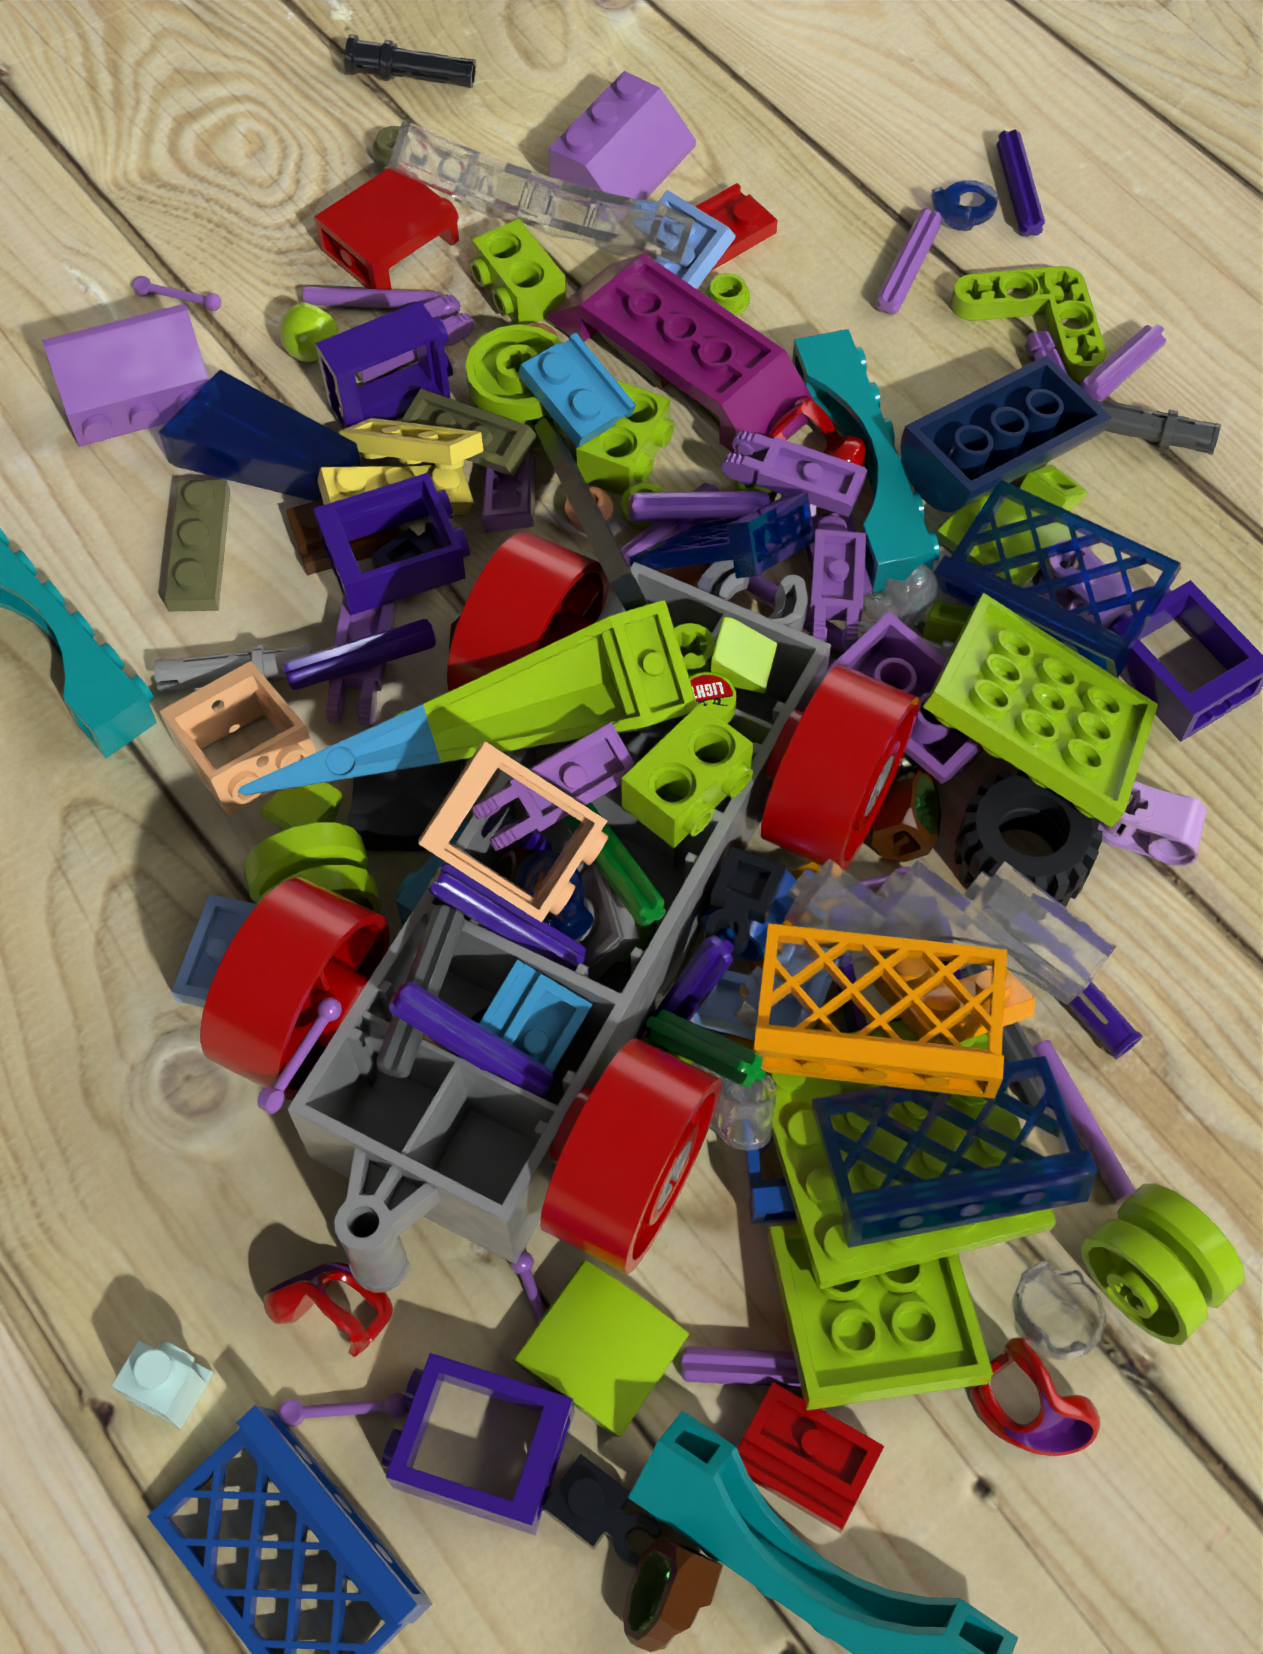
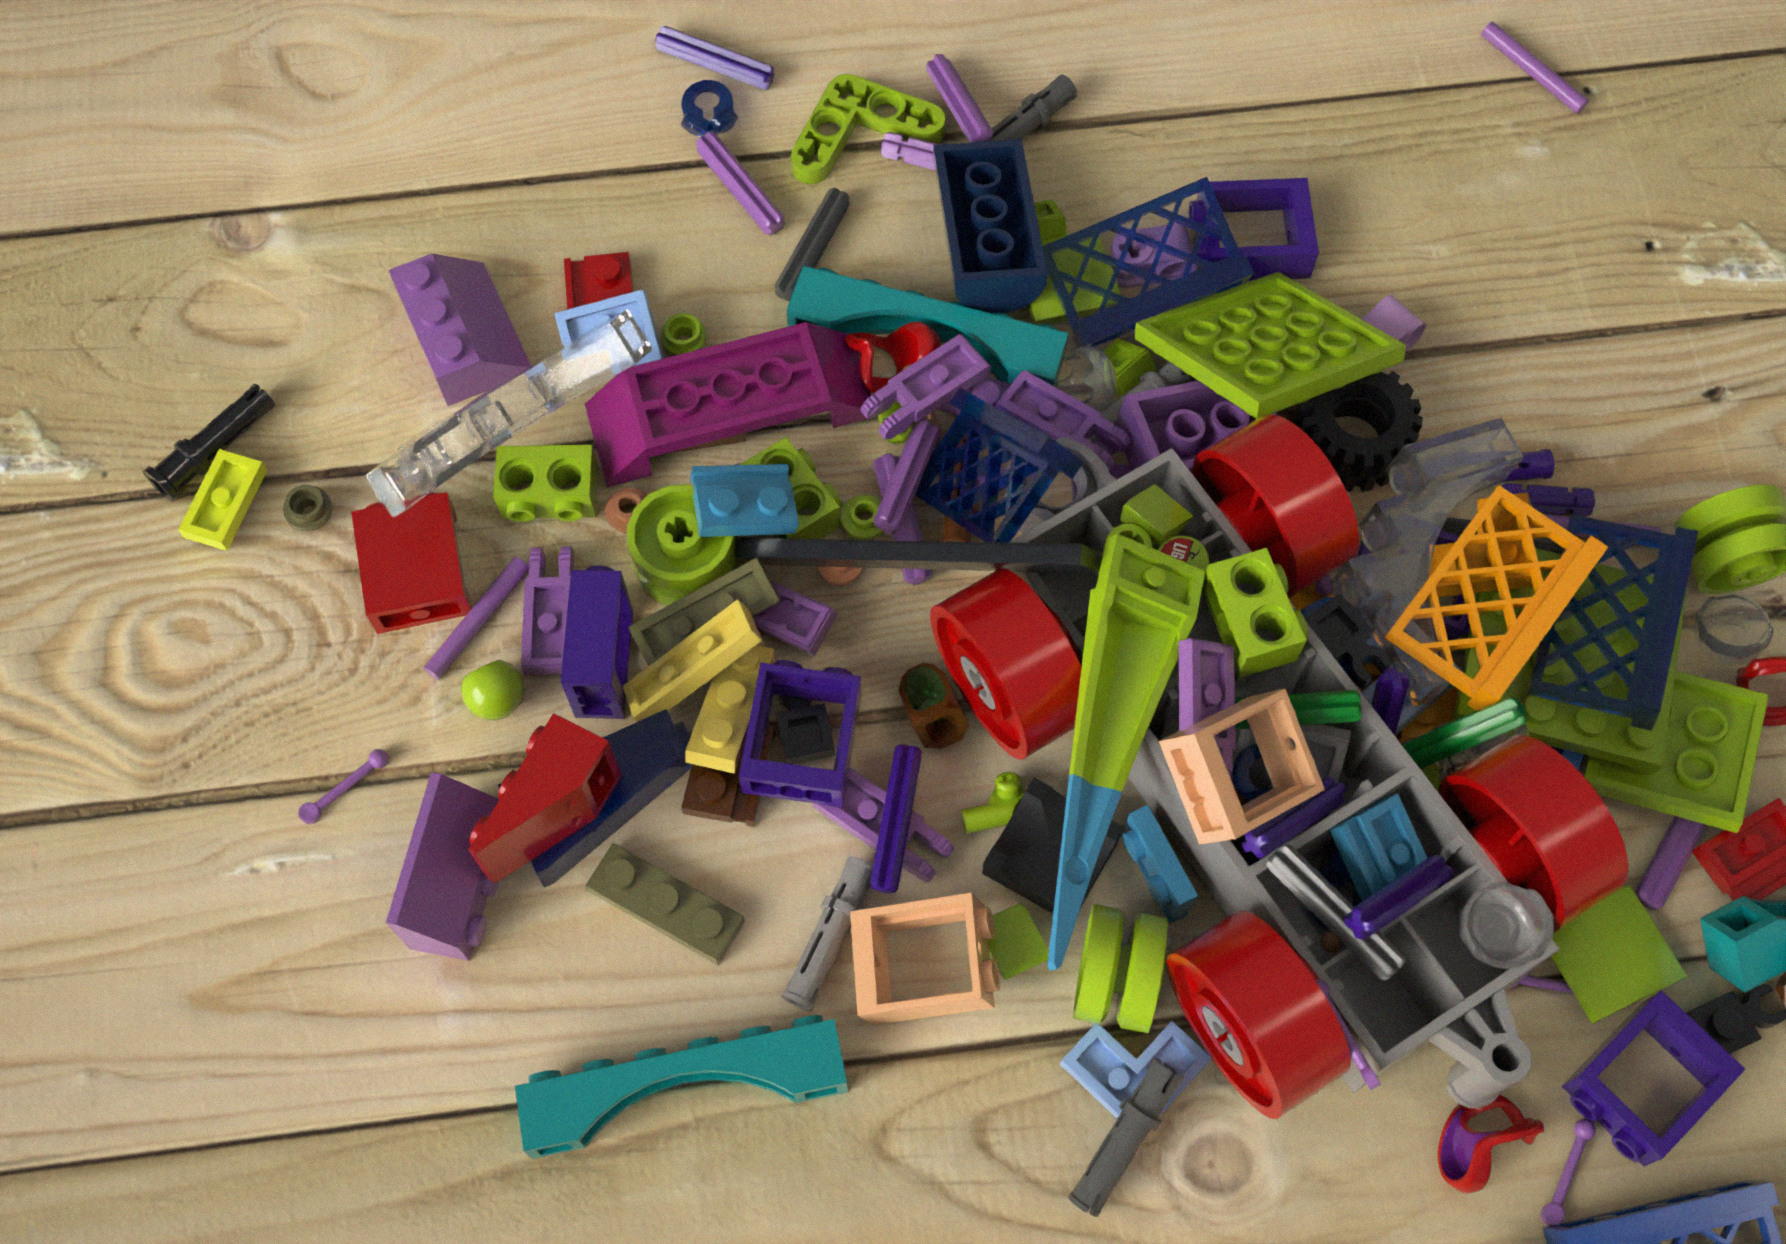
camera: 60 degrees left, 5 degrees up
(179, 971) = (1132, 1126): none -> dark grey pin
(204, 383) = (547, 799): none -> red slope
(365, 96) = (223, 499): none -> neon yellow plate
(486, 1142) = (1506, 925): none -> clear hair
(904, 337) = (813, 240): none -> dark grey axle
(1085, 1065) = (1557, 499): none -> dark purple axle

